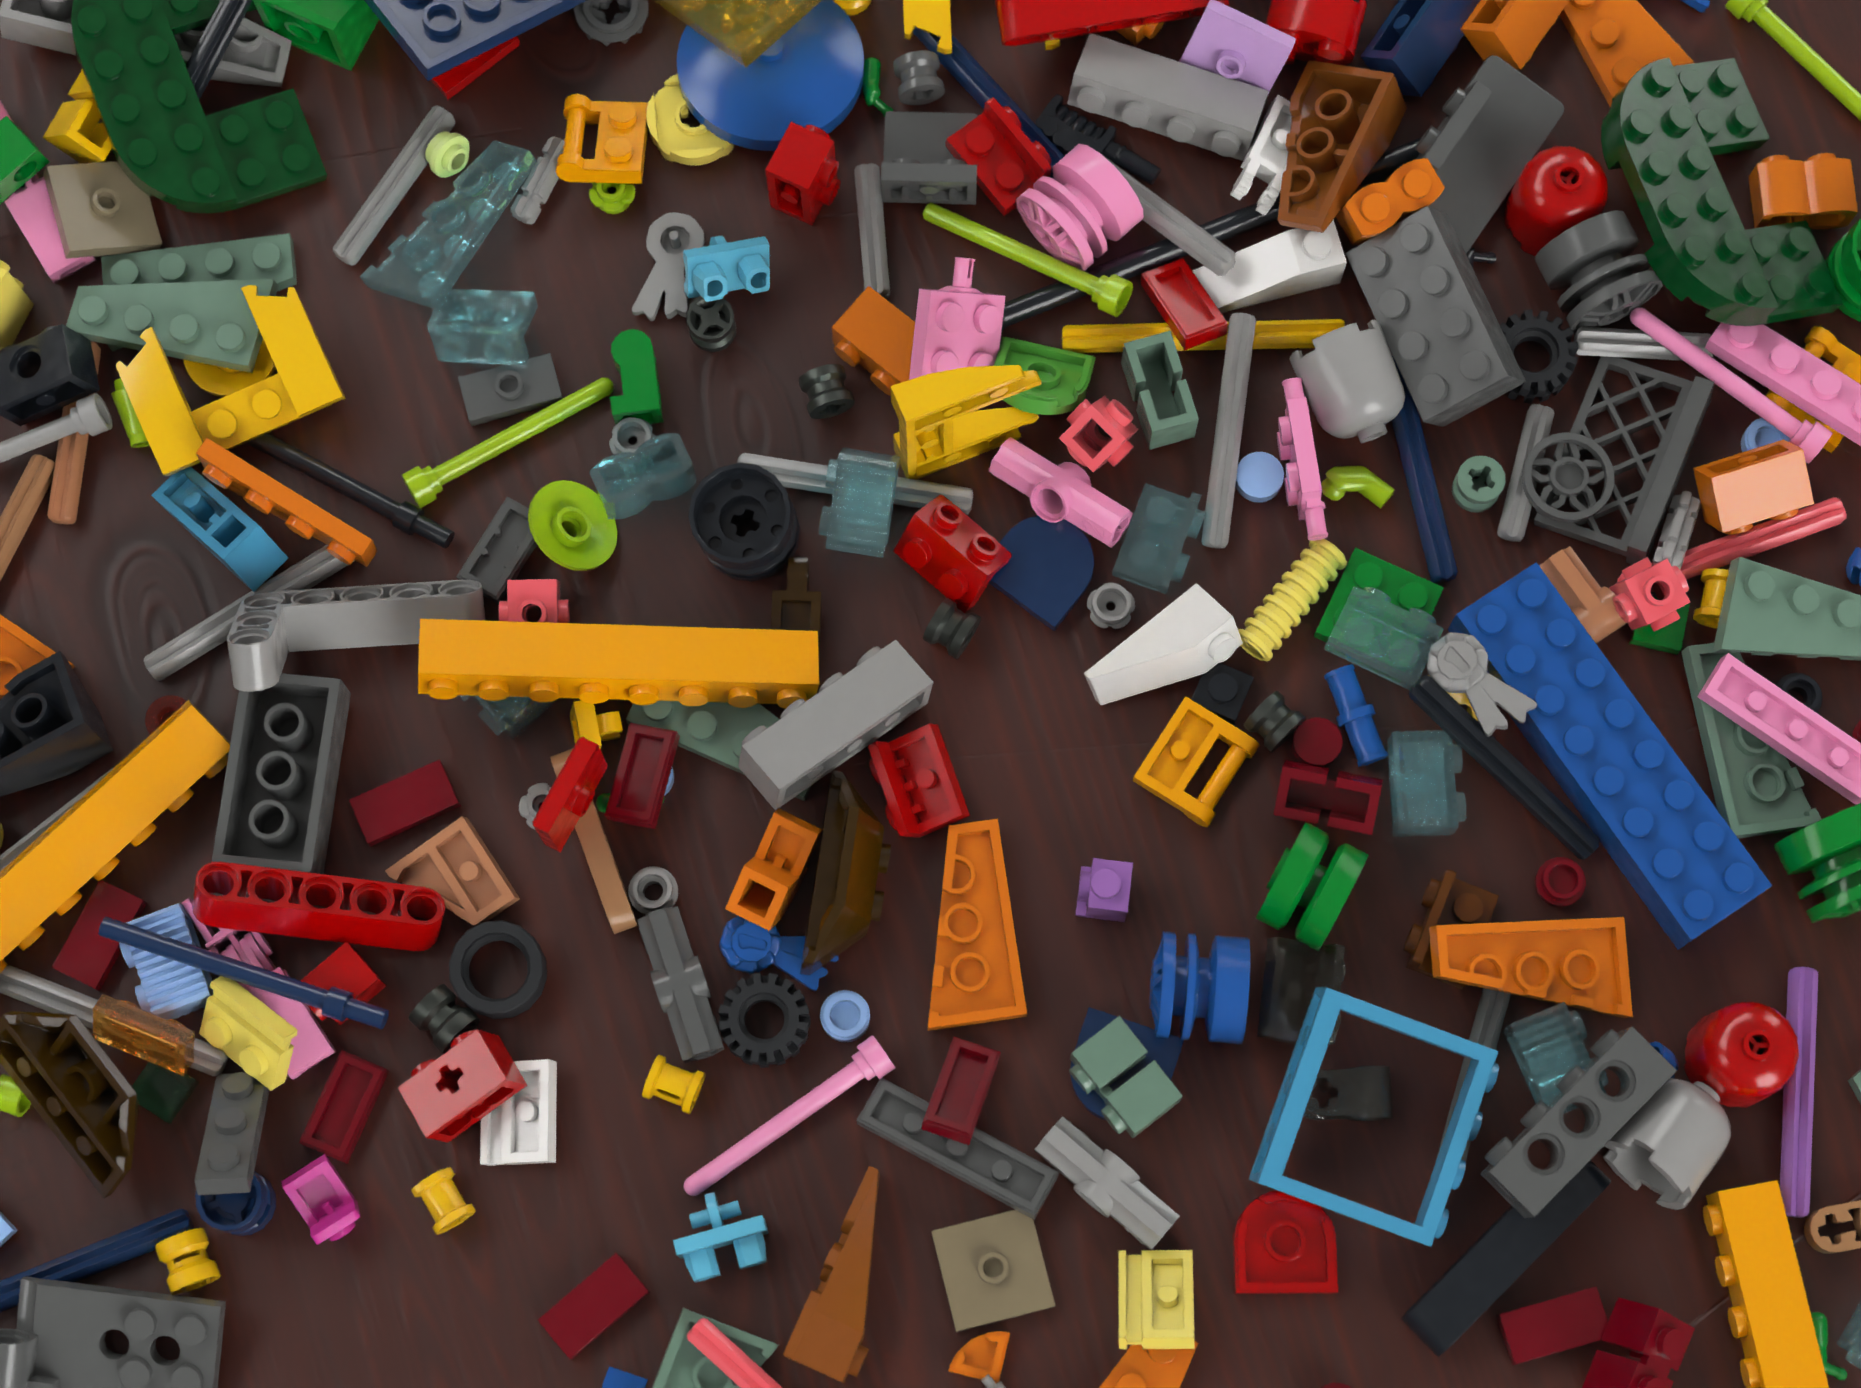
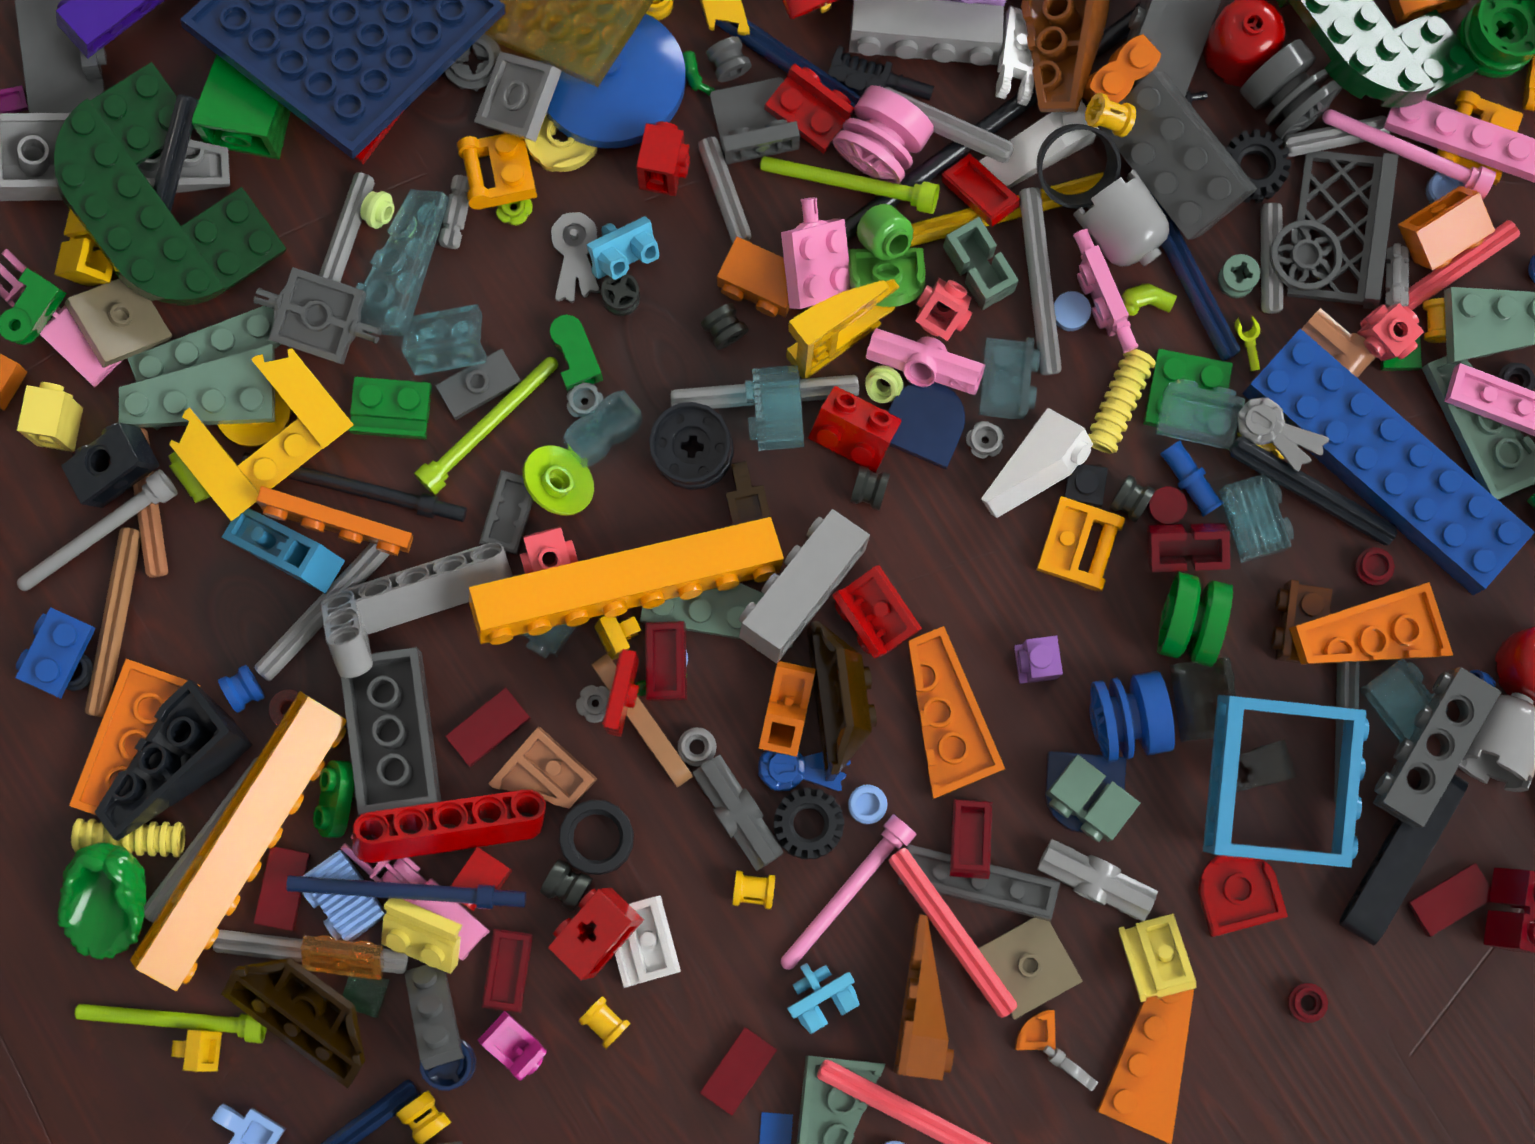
camera: 20 degrees left, 5 degrees up
(120, 680) = (241, 688): none -> blue wheel
(196, 833) = (335, 799): none -> green plate
(338, 259) = (317, 315): none -> dark grey plate
(397, 391) = (390, 408): none -> green plate
(651, 60) = (517, 96): none -> light grey plate
(906, 1201) = (953, 933): none -> coral axle
(994, 515) = (879, 392): none -> yellowish green plate
(1051, 324) = (885, 232): none -> bright green head
(1305, 344) = (1110, 175): none -> black tyre
(1361, 244) = (1110, 115): none -> yellow bush
(1472, 568) = (1250, 341): none -> neon yellow hand

